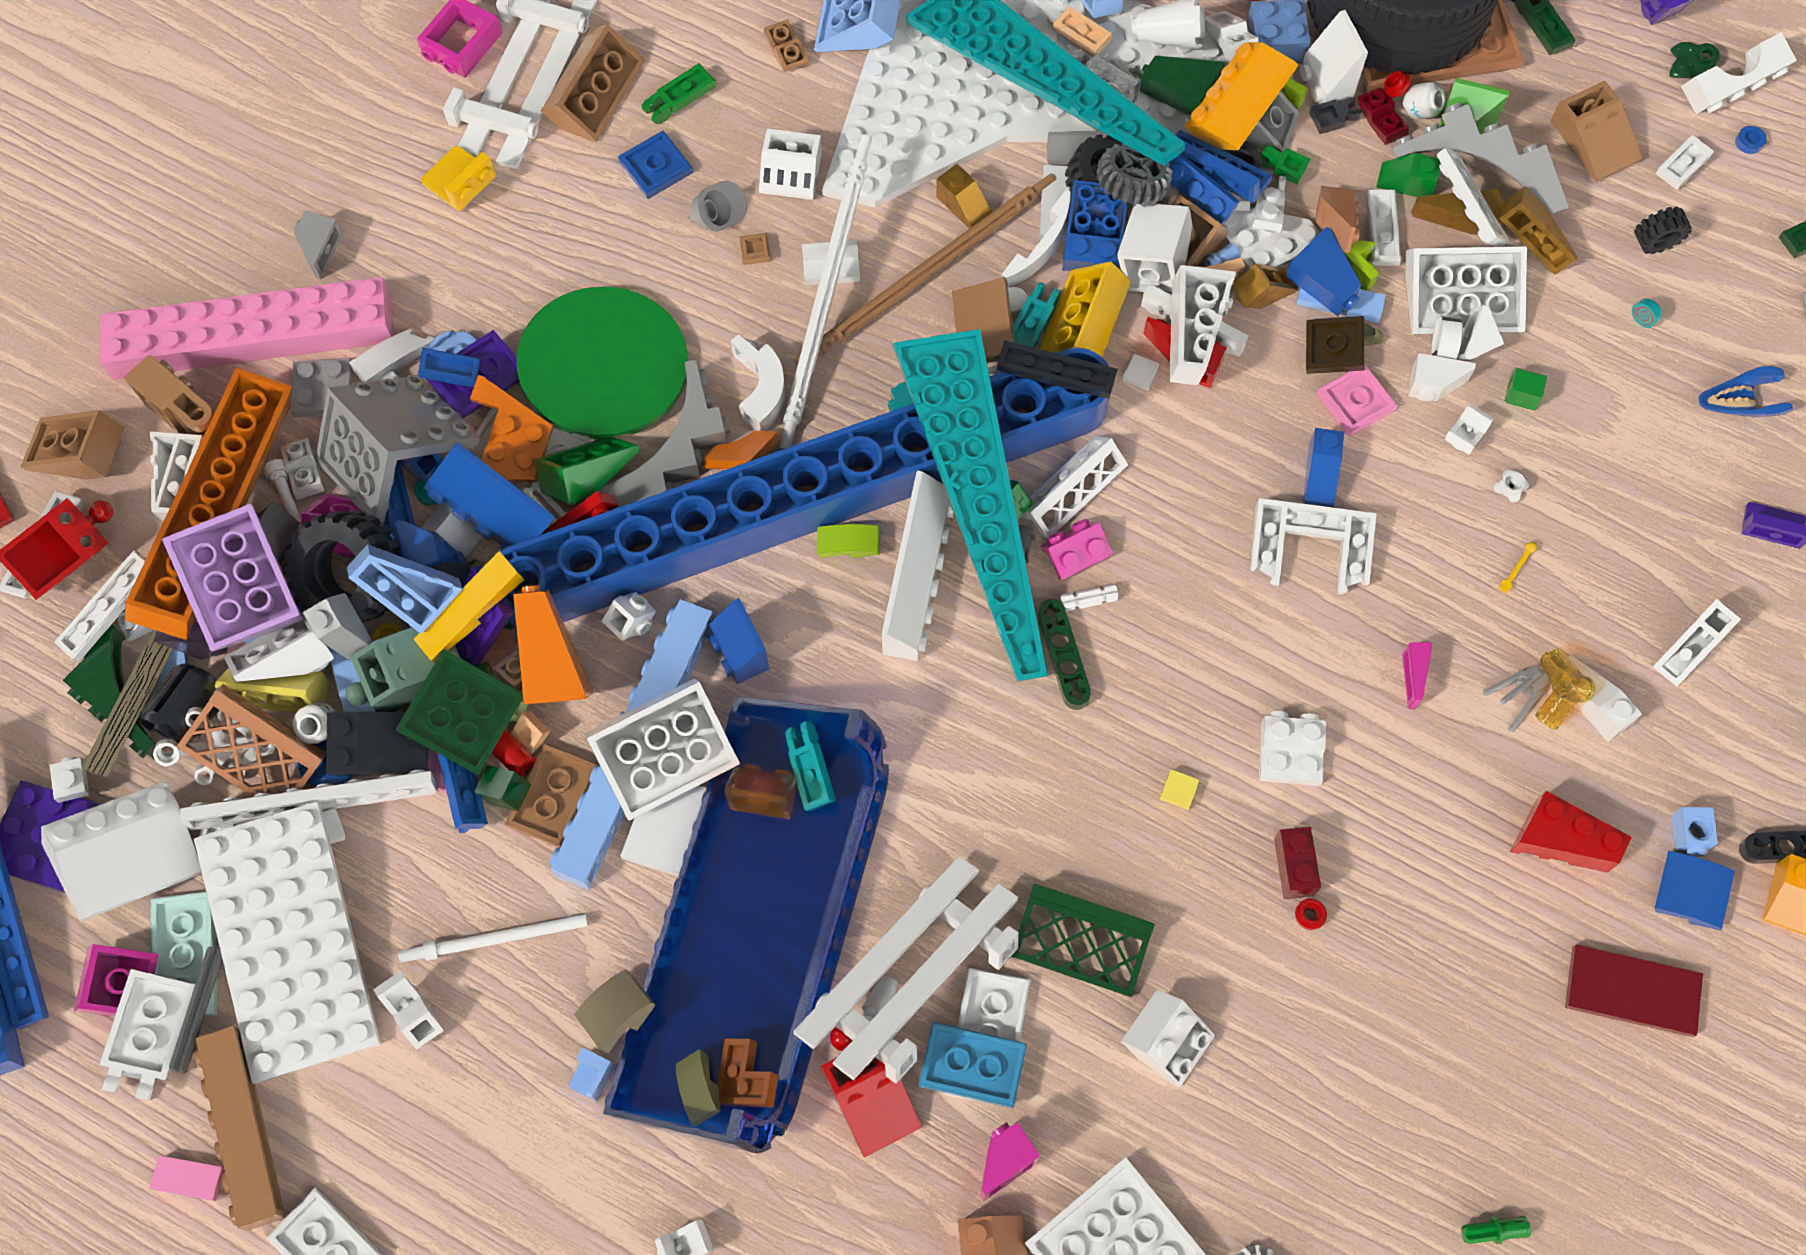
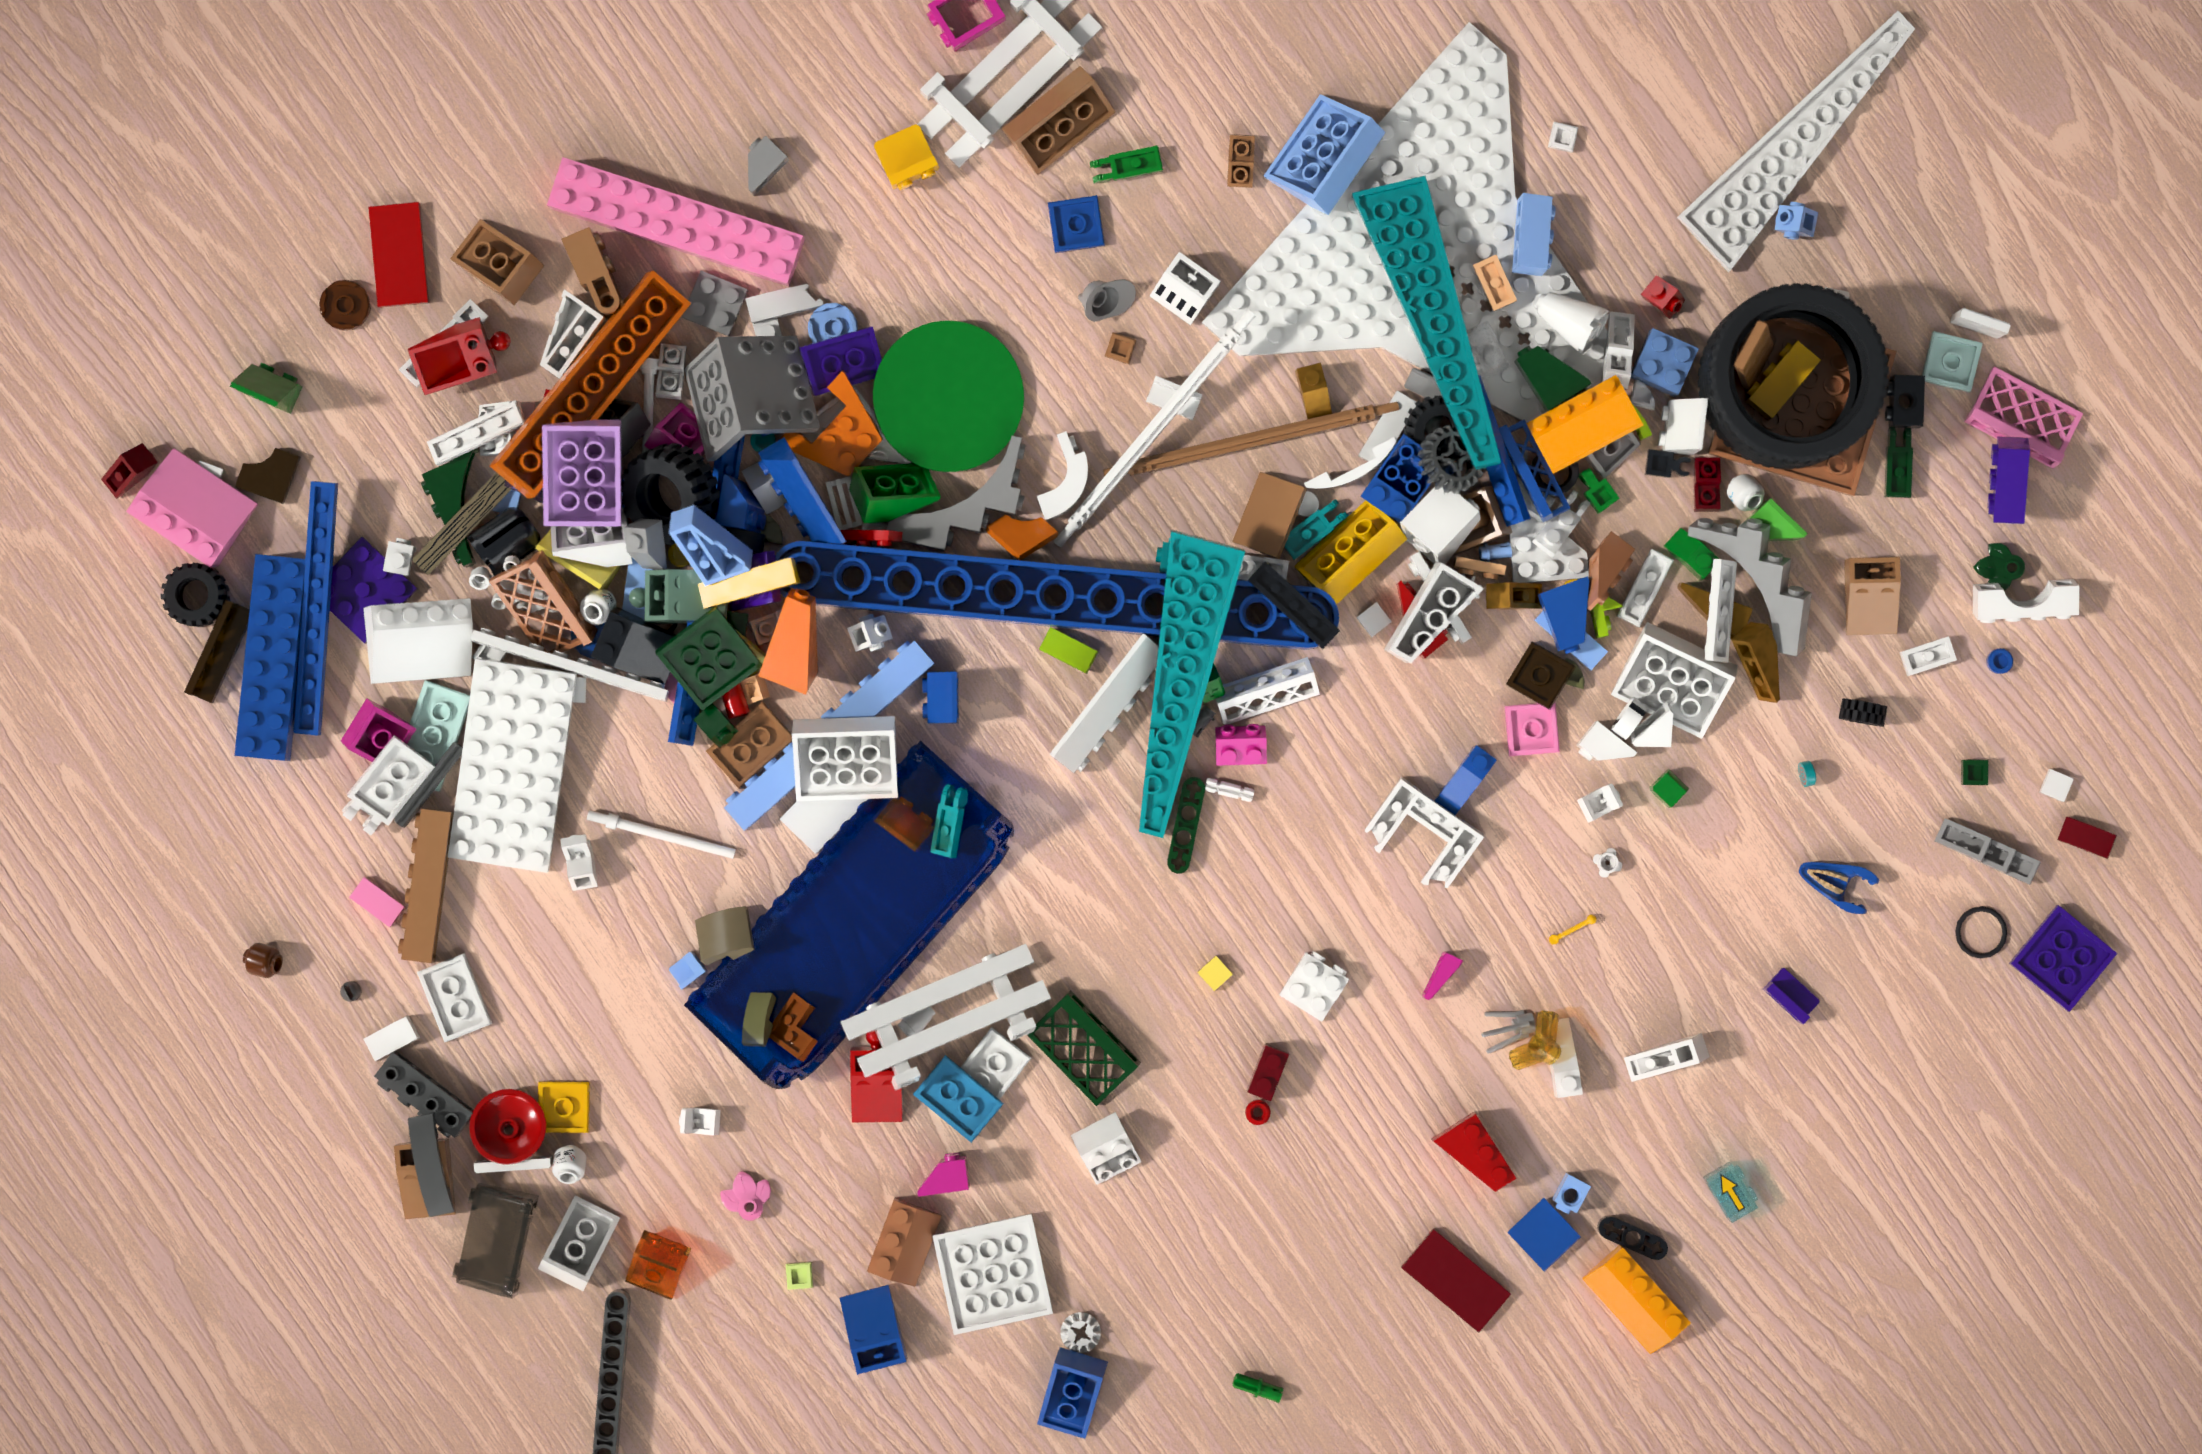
camera: 20 degrees right, 20 degrees up
(448, 367) = (821, 351): blue tile -> none
(1397, 84) = (1730, 468): red plate -> none

